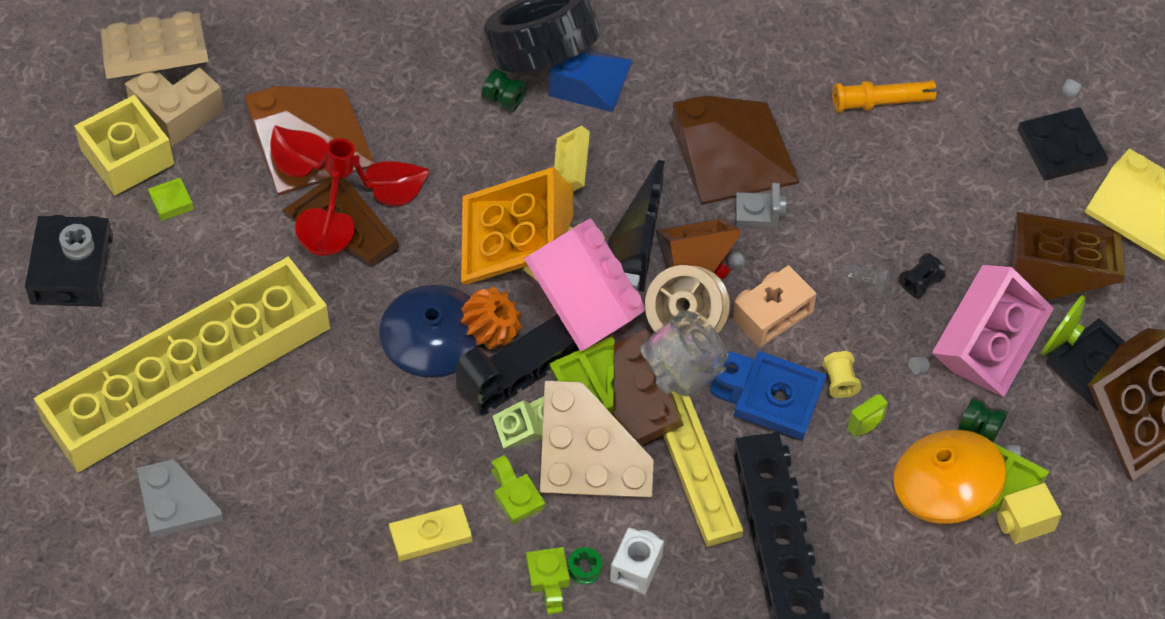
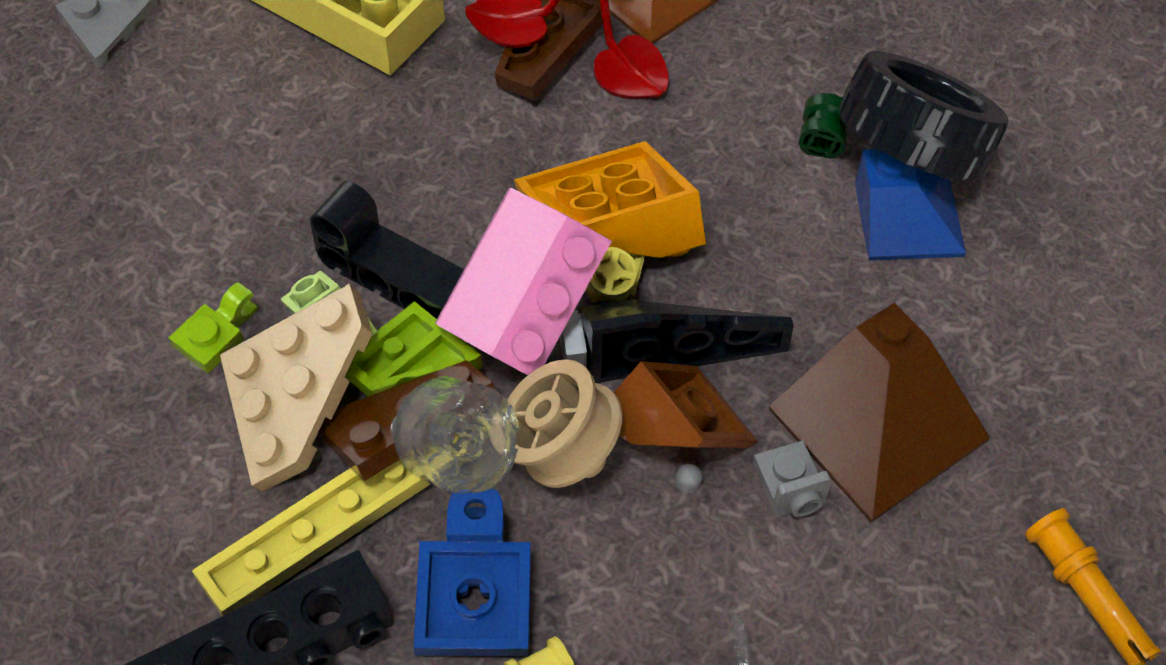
camera: 70 degrees right, 0 degrees up
(426, 345) = (432, 191): dark blue dish -> none
(430, 532) = (131, 261): light yellow plate -> none
(491, 318) = (448, 199): orange gear -> none
(549, 574) = (101, 402): lime plate -> none
(572, 156) = (753, 230): light yellow plate -> none
(576, 573) = (110, 445): green bush -> none
(632, 573) = (126, 479): white brick -> none
(722, 271) = (665, 463): red piece -> none
(773, 305) = (640, 563): light nougat brick -> none

